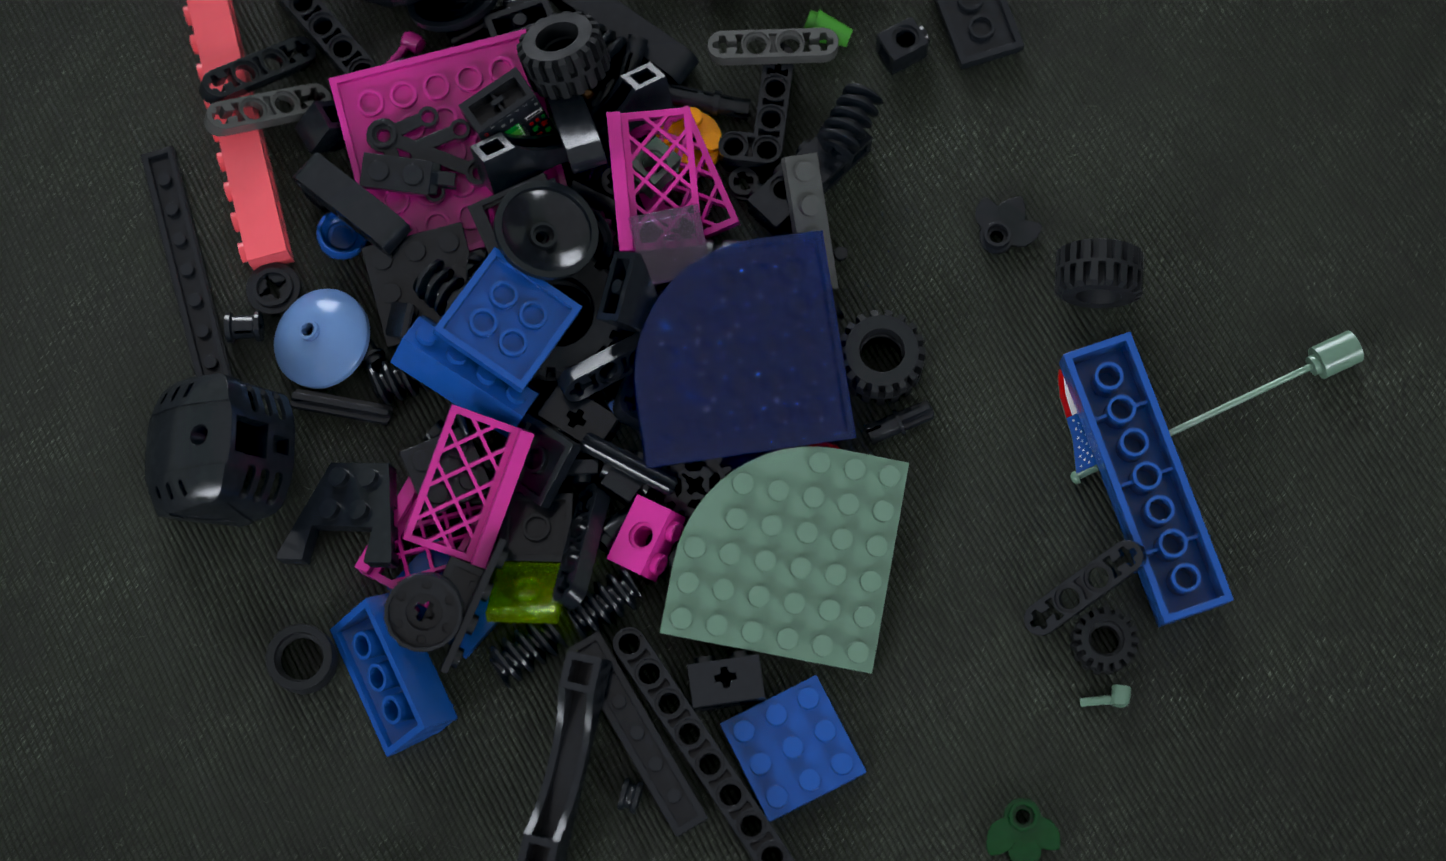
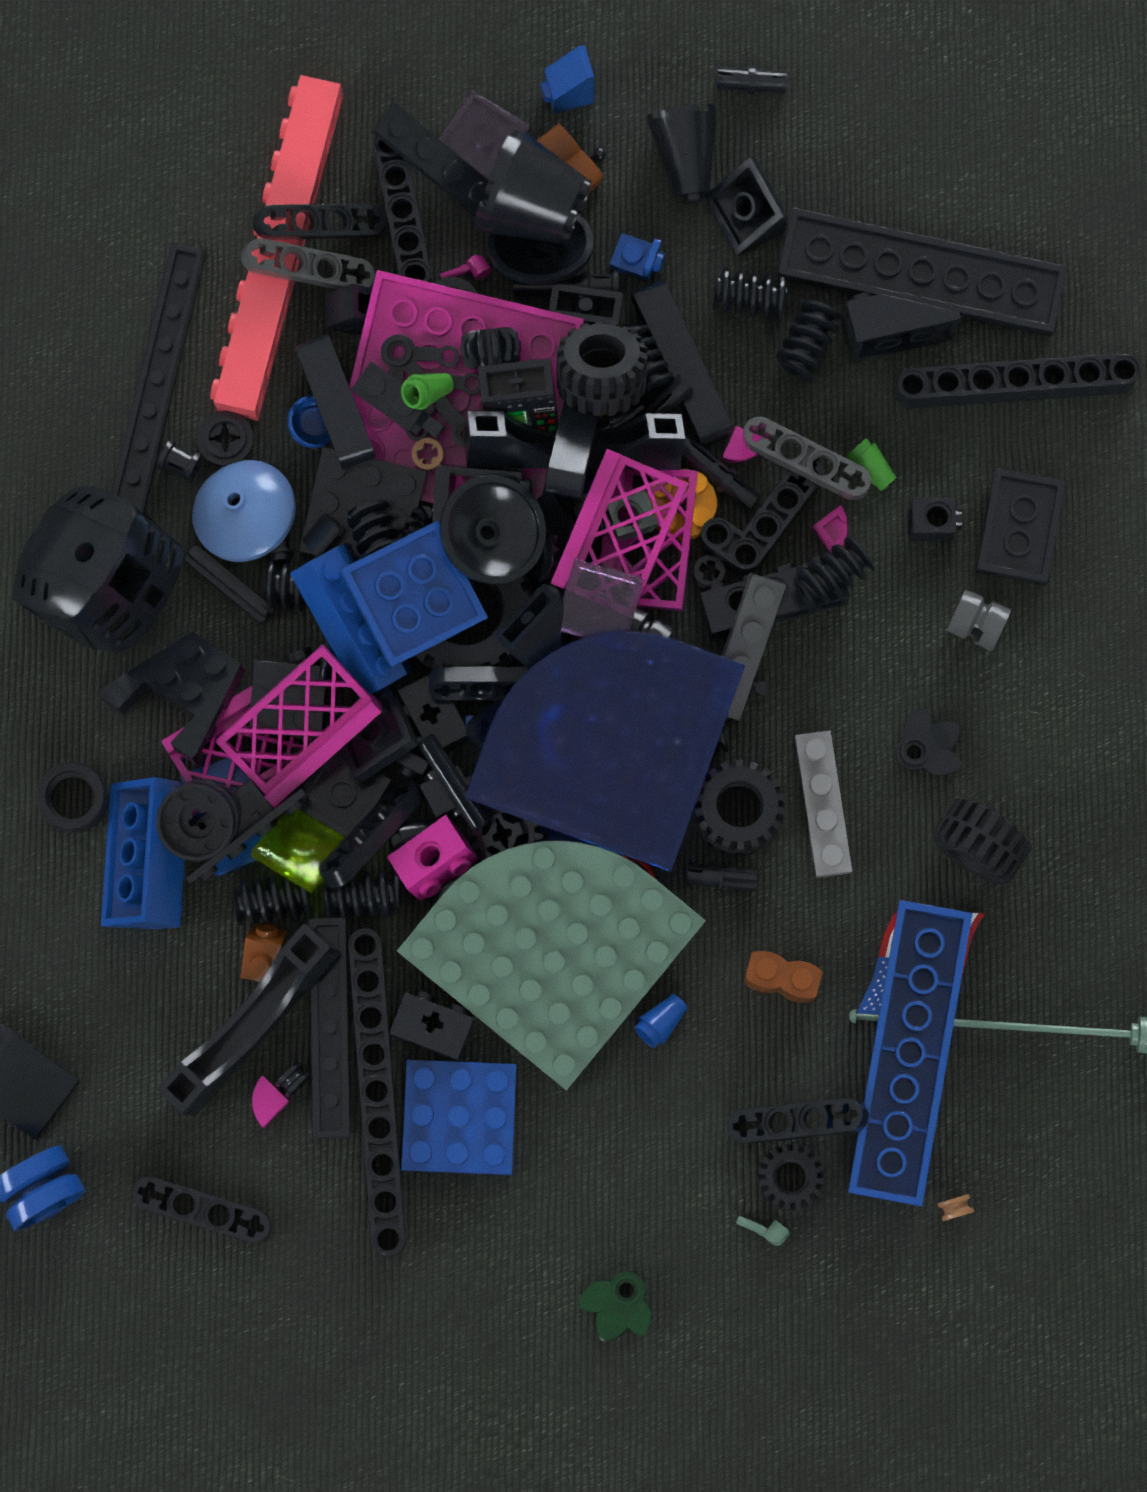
camera: 25 degrees right, 5 degrees up
(423, 149) = (425, 389): none -> bright green cone
(444, 205) = (420, 446): none -> medium nougat bush
(458, 86) = (490, 347): none -> black gear
(541, 700) = (260, 950): none -> dark orange bracket
(618, 828) = (267, 1102): none -> dark pink tile
(711, 73) = (736, 449): none -> dark pink tile
(823, 96) = (832, 528): none -> dark pink tile
(917, 571) = (660, 1021): none -> blue cone
(947, 319) = (823, 804): none -> light grey plate
(987, 103) = (978, 620): none -> dark grey wheel
(1008, 475) = (792, 979): none -> dark orange brick
(1256, 588) = (955, 1207): none -> medium nougat bush

